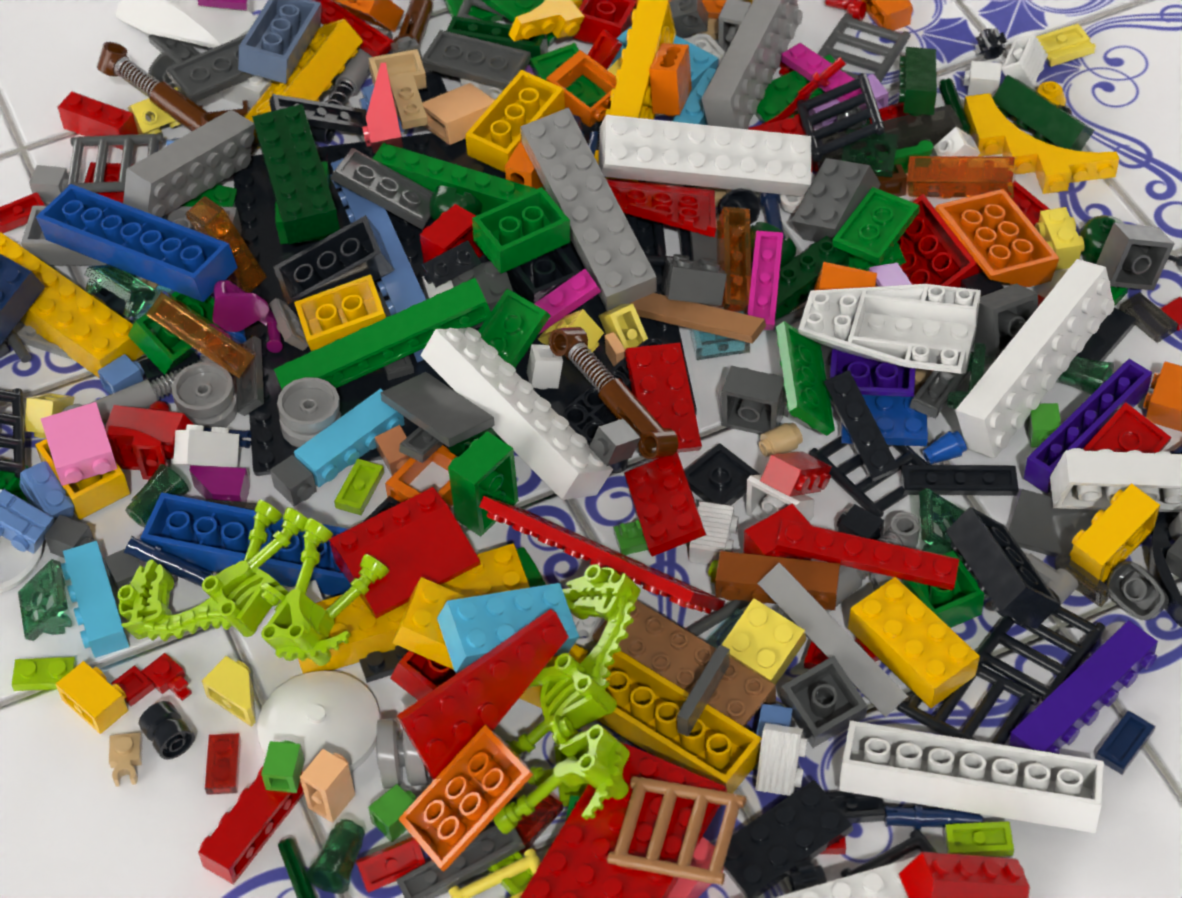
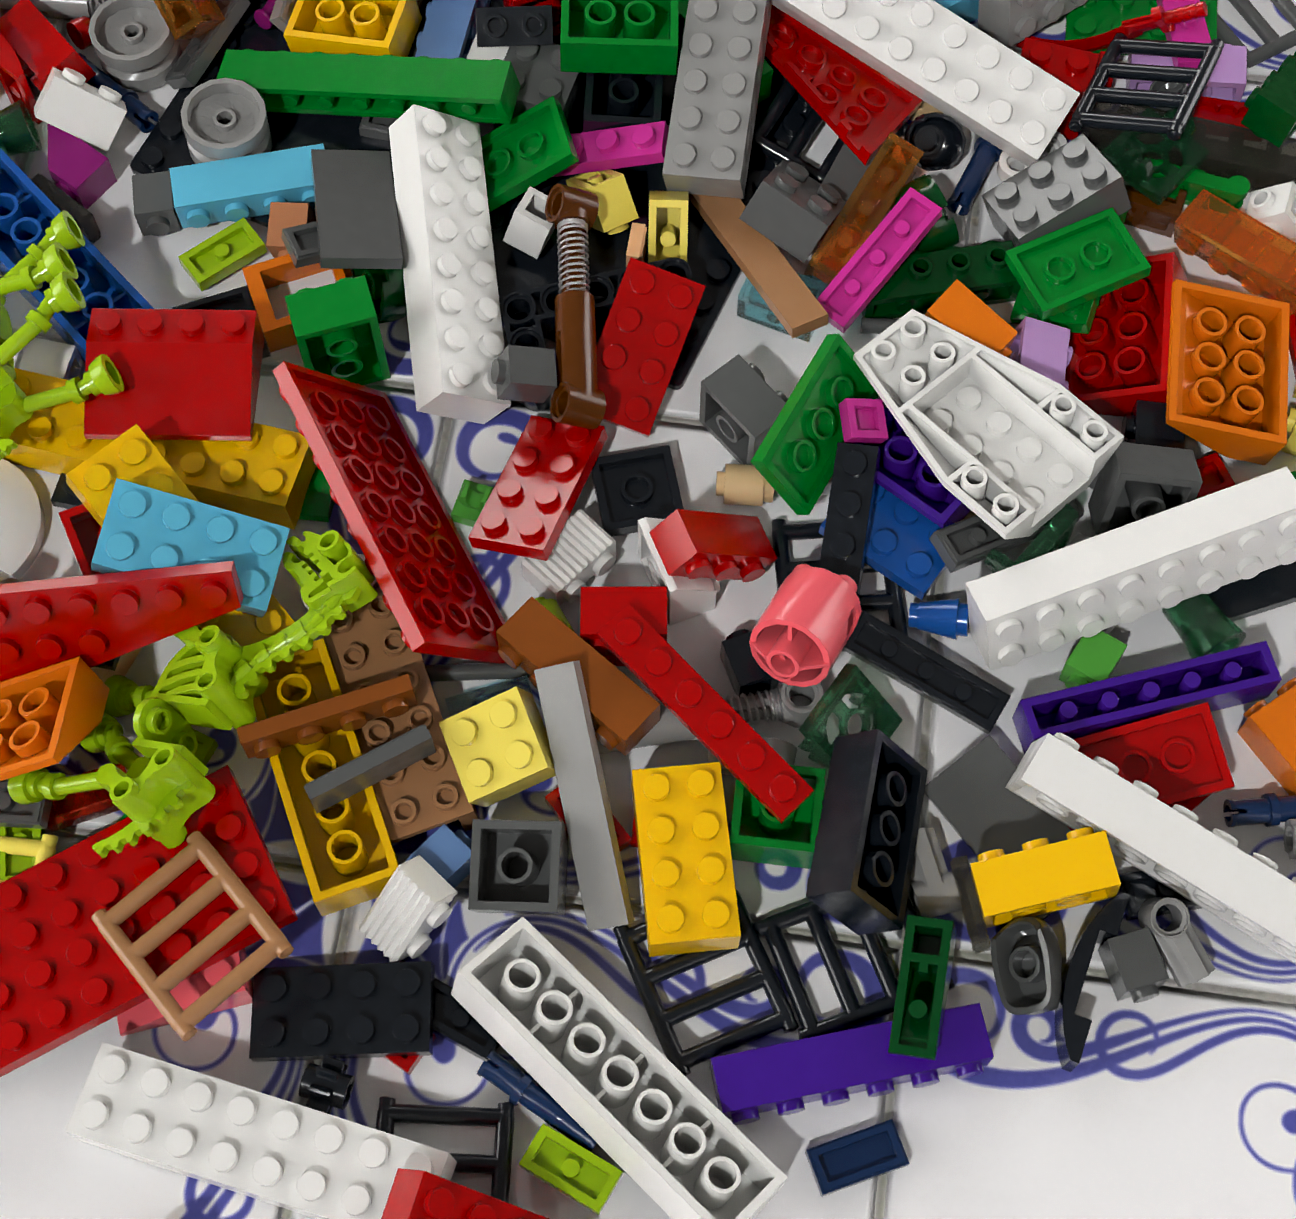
camera: 30 degrees right, 15 degrees up
(650, 684) = (312, 722): none -> dark orange plate
(828, 362) = (863, 421): none -> dark pink plate
(883, 483) = (806, 626): none -> coral cylinder
(1093, 624) = (922, 987): none -> dark green slope

